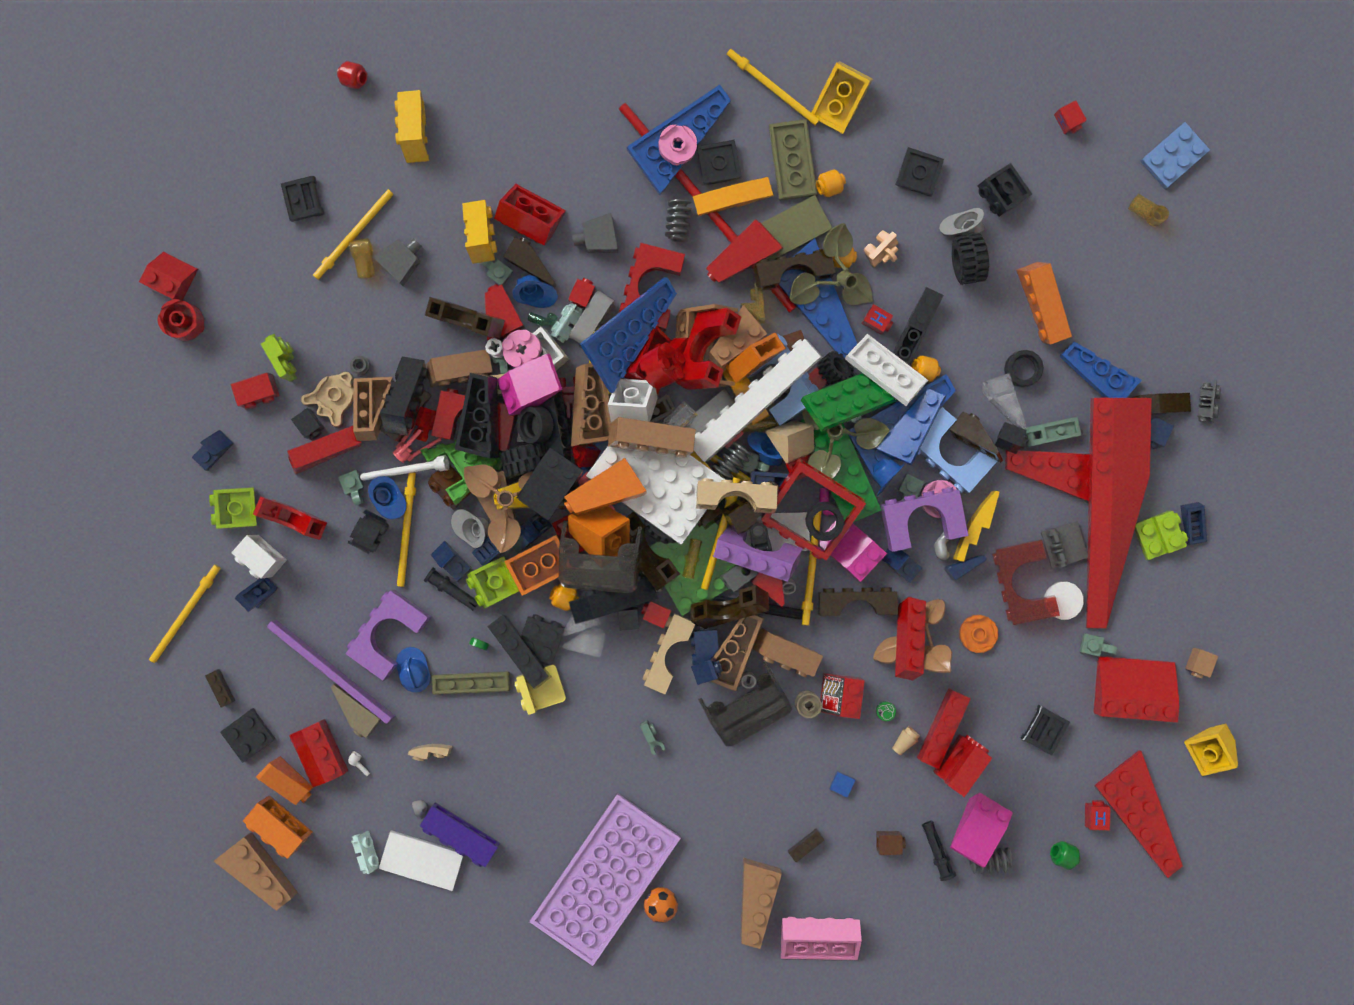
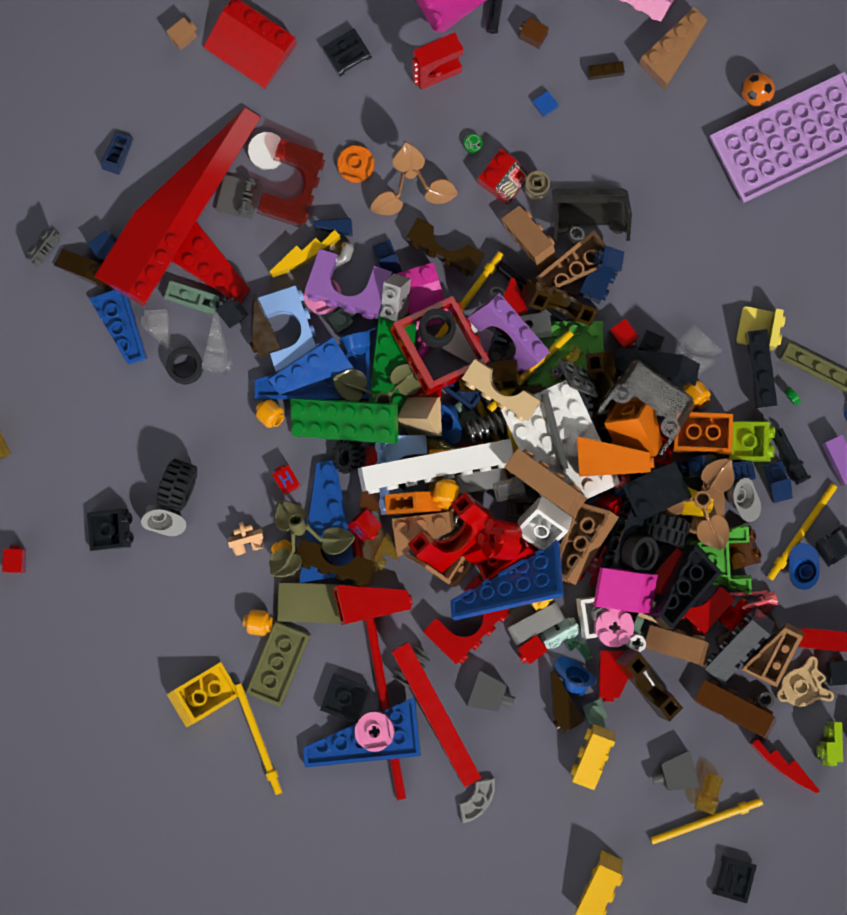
camera: 145 degrees left, 5 degrees down
(306, 316) = (790, 770): none -> red slope
(352, 485) = (828, 598): sand green plate -> none
(379, 340) = (736, 709): none -> reddish brown wedge
(440, 463) = (741, 570): white piece -> none
(529, 214) = (539, 748): red slope -> none
(542, 637) = (734, 370): black plate -> none
(556, 141) = (478, 801): none -> light grey tile
(634, 190) = (436, 714): none -> red tile
(649, 732) = (686, 238): sand green plate -> none
(659, 676) = (651, 281): tan arch -> none
(669, 487) = (554, 431): none -> dark grey bar
(677, 548) = (576, 377): none -> dark grey hinge
(732, 196) = (350, 660): light orange slope -> none
(733, 379) = (445, 493): none -> light orange head
(786, 317) = (365, 526): none -> red brick
(876, 530) = (395, 297): none -> light grey brick
(886, 369) = (306, 430): white tile -> none
(905, 740) = (470, 109): tan cone -> none
(910, 639) = (419, 190): red brick -> none
(917, 325) = (255, 454): black slope -> none
(919, 171) = (173, 588): black plate -> none
(943, 728) = (432, 101): red brick -> none
(1045, 302) = (133, 412): orange wedge -> none
(1066, 389) = (158, 326): none -> clear slope
(1094, 645) = (263, 99): sand green plate -> none
(1160, 534) = (151, 159): lime plate -> none

